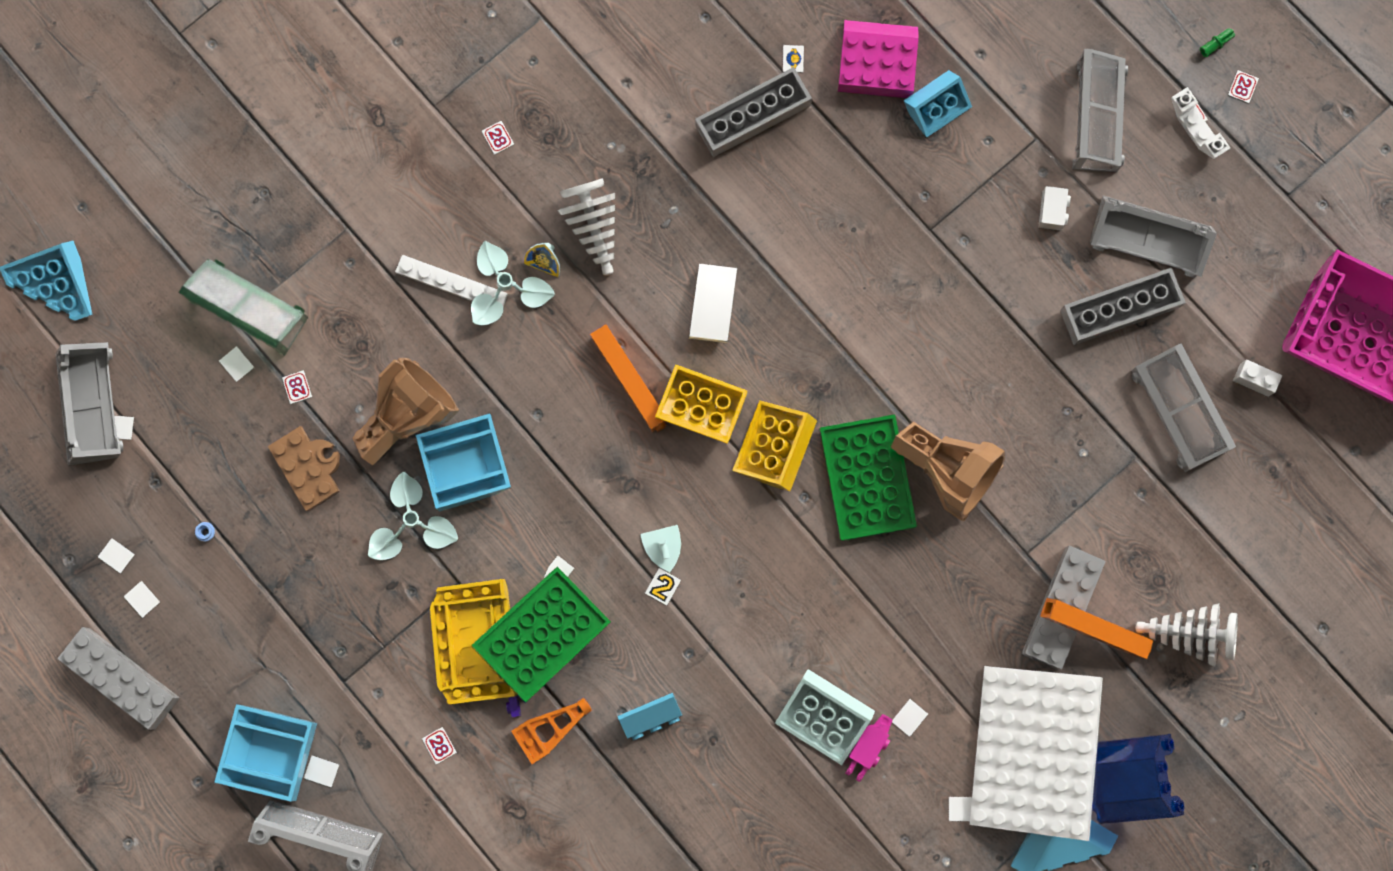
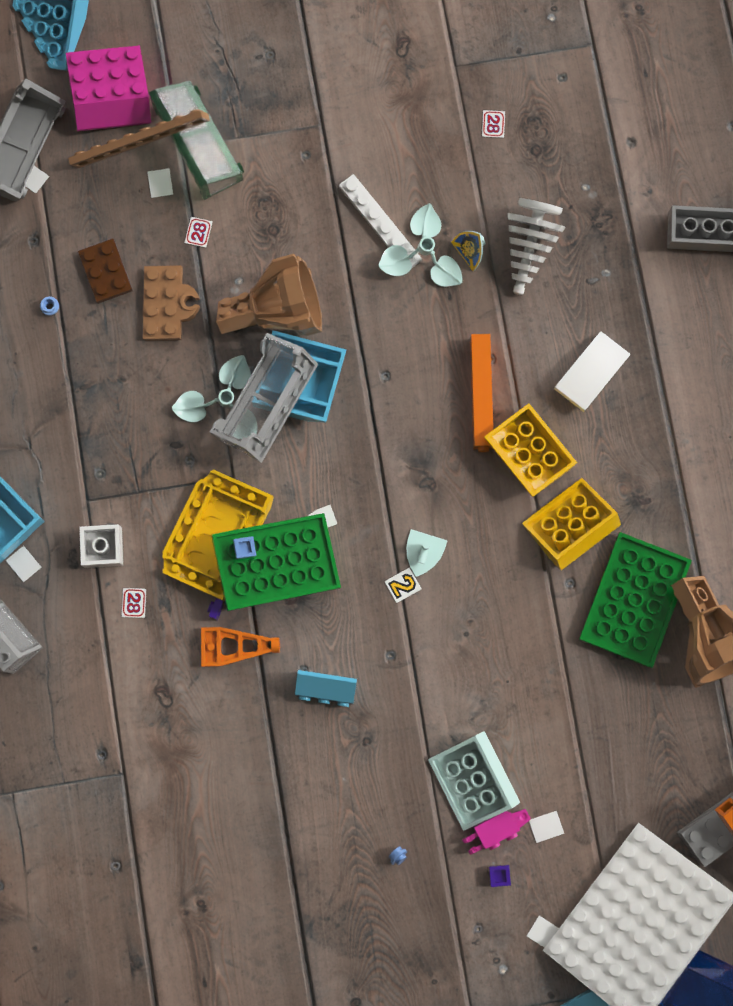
camera: 25 degrees right, 0 degrees up
(139, 308) = (108, 88): none -> dark pink slope
(198, 333) = (138, 139): none -> medium nougat plate
(235, 471) = (105, 271): none -> reddish brown plate
(380, 714) = (101, 546): none -> white brick
(446, 498) = (266, 398): none -> windscreen
(507, 639) = (244, 547): none -> medium blue plate
(799, 821) = (398, 856): none -> medium blue plate
(895, 784) = (499, 875): none -> dark purple plate

